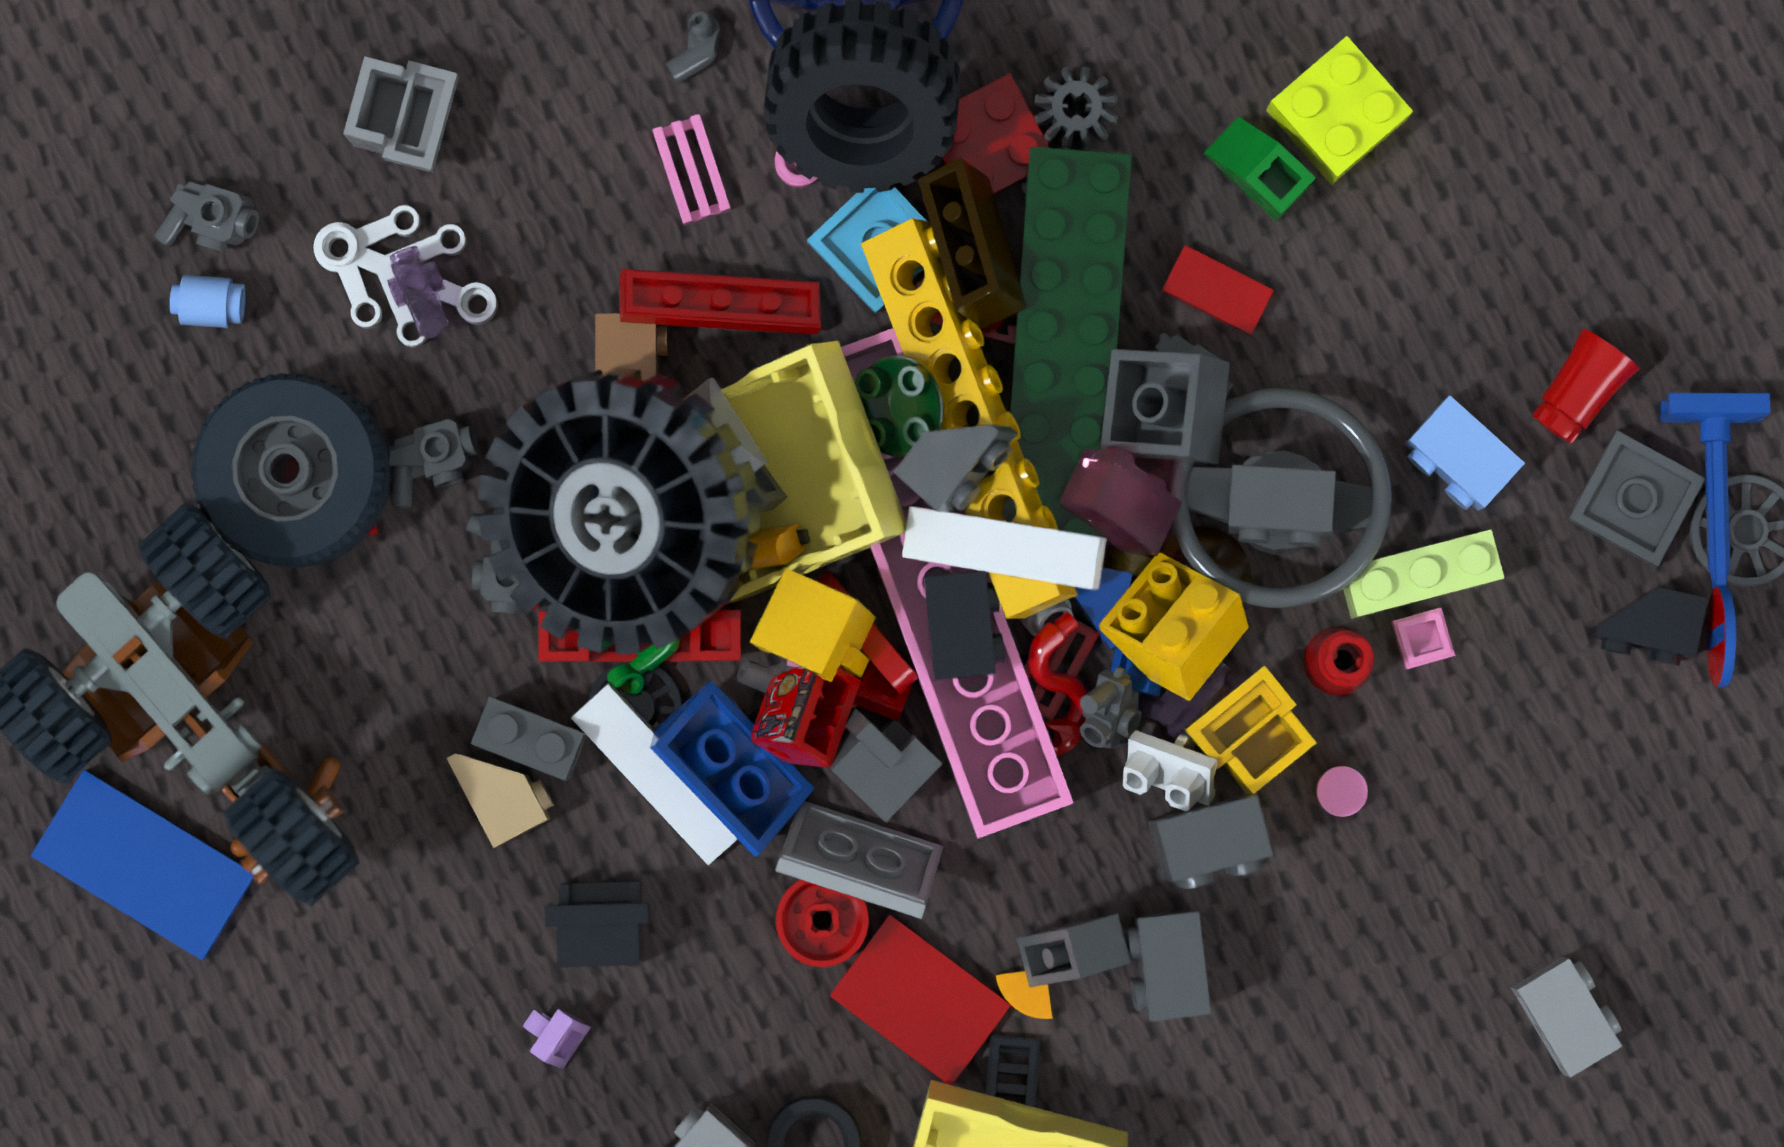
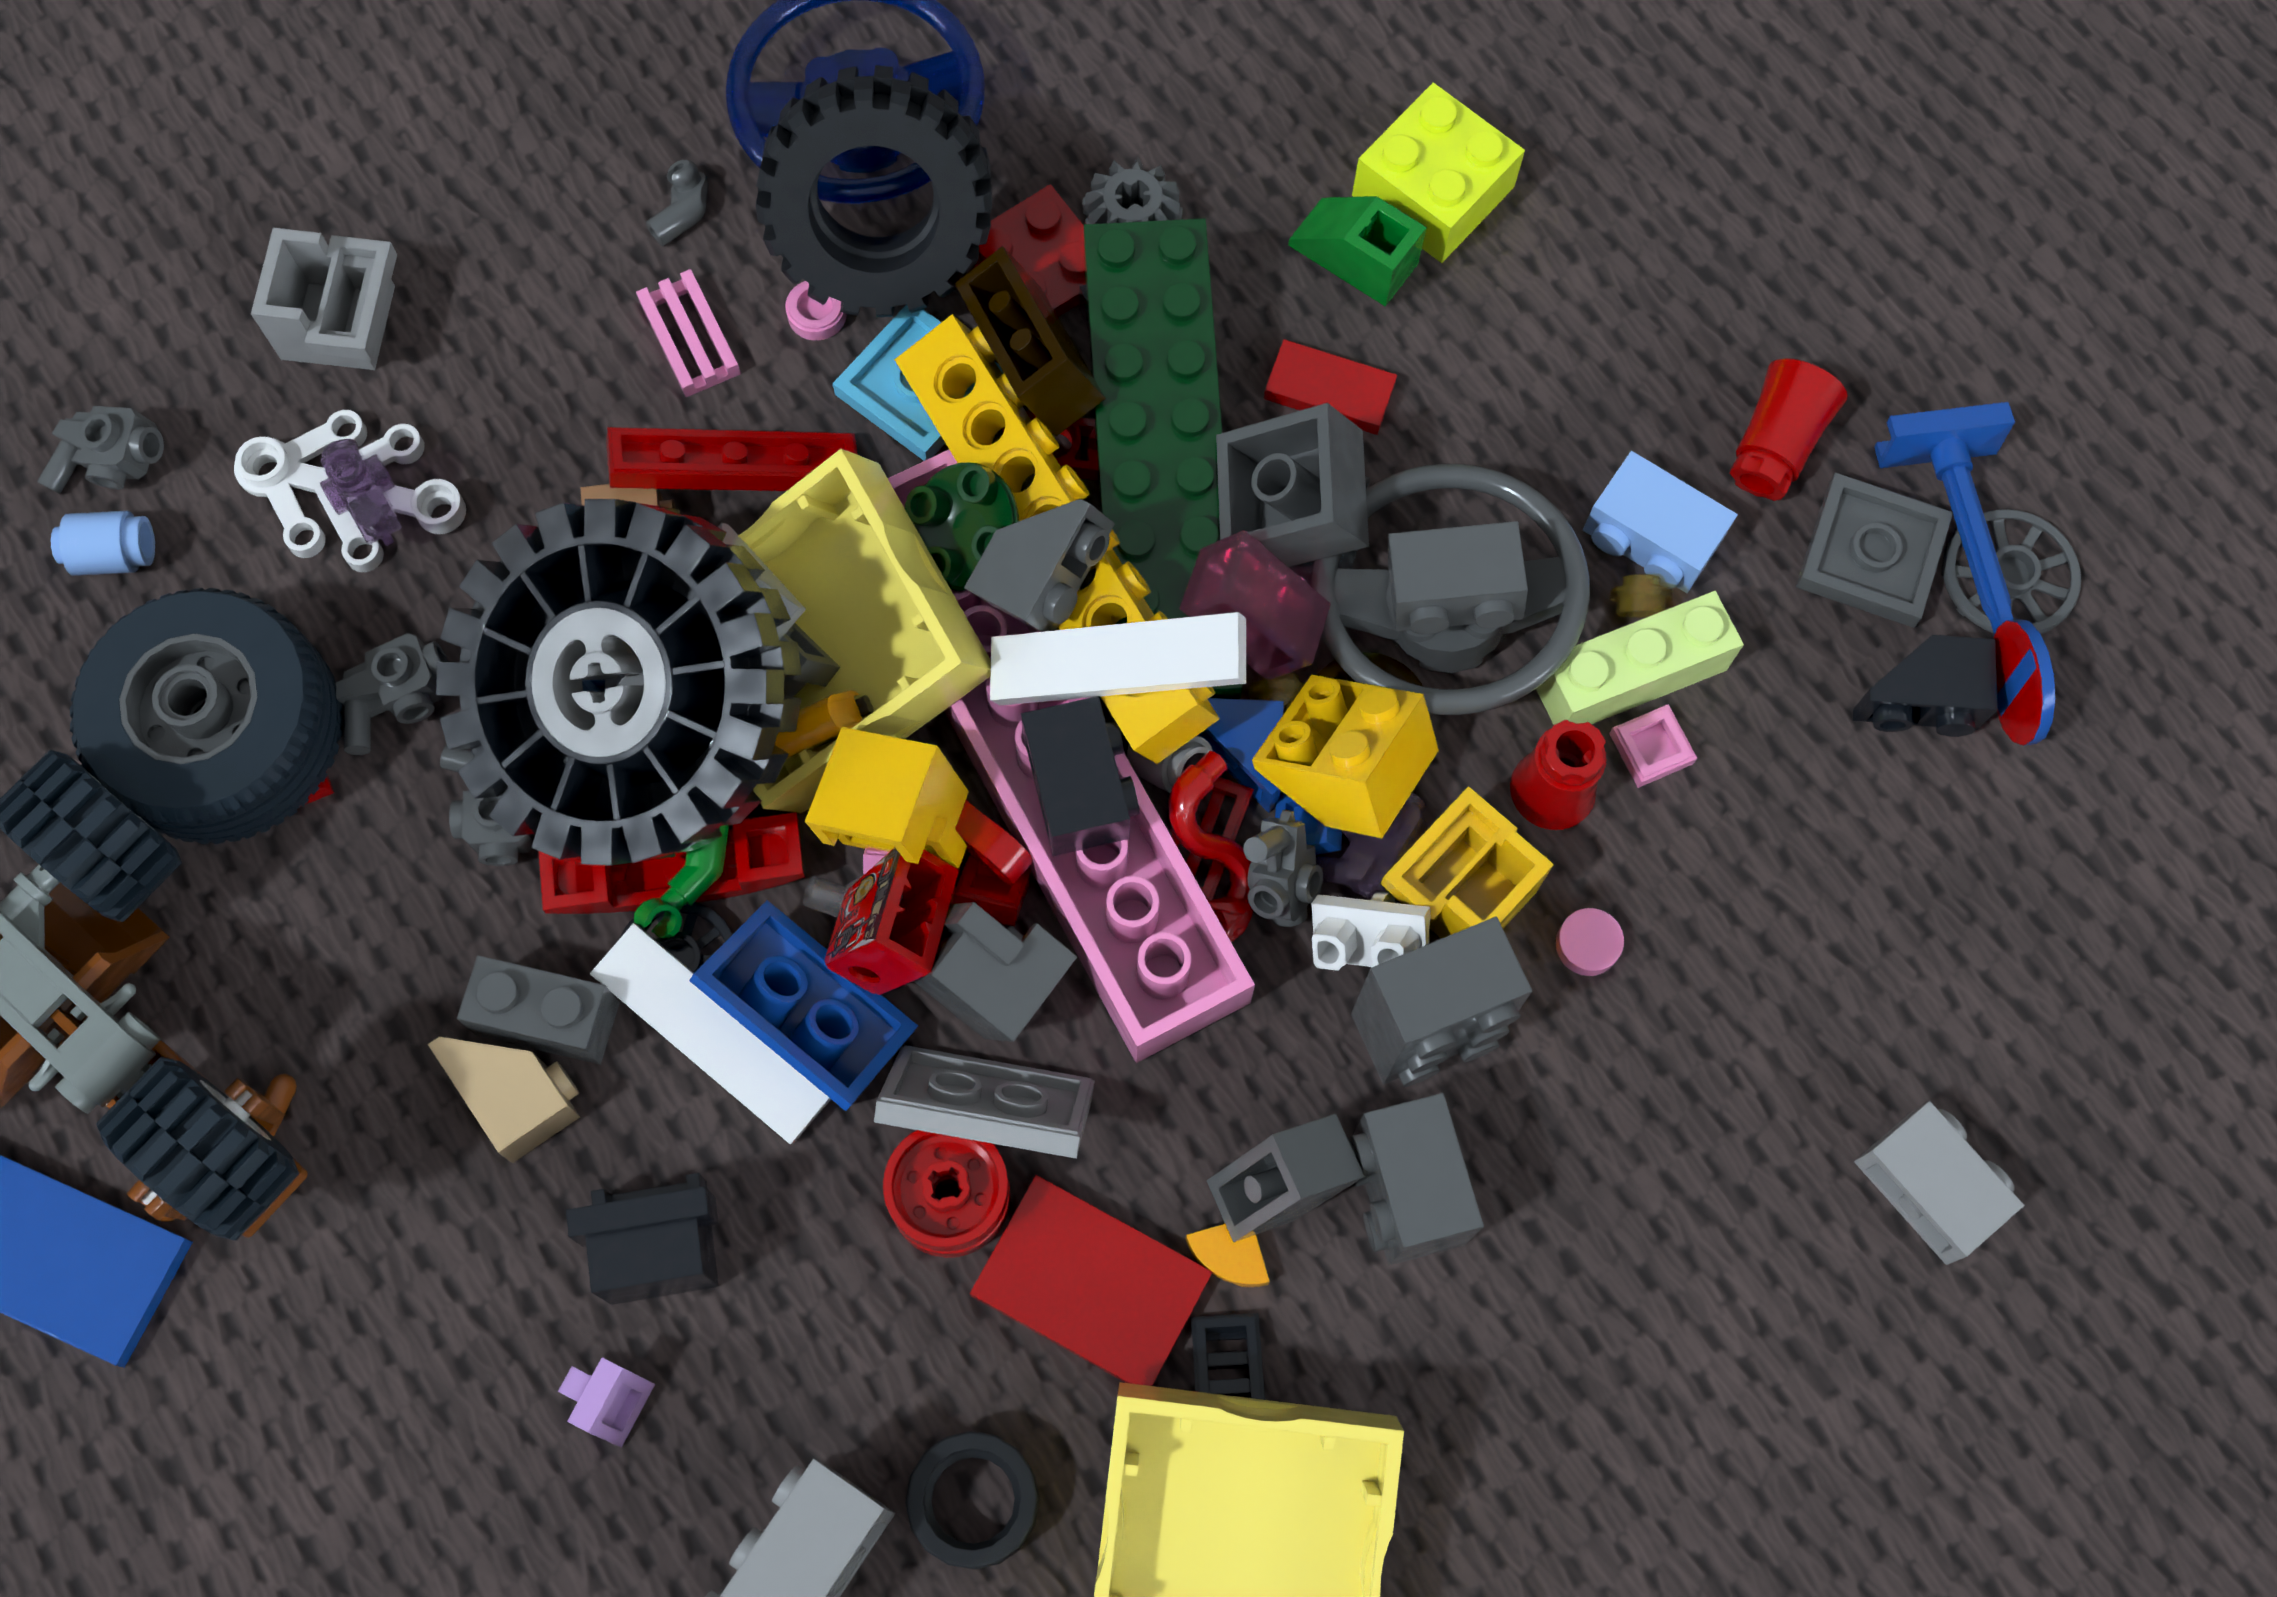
camera: 10 degrees left, 15 degrees down
(1437, 514) = (1640, 596): none -> clear yellow plate

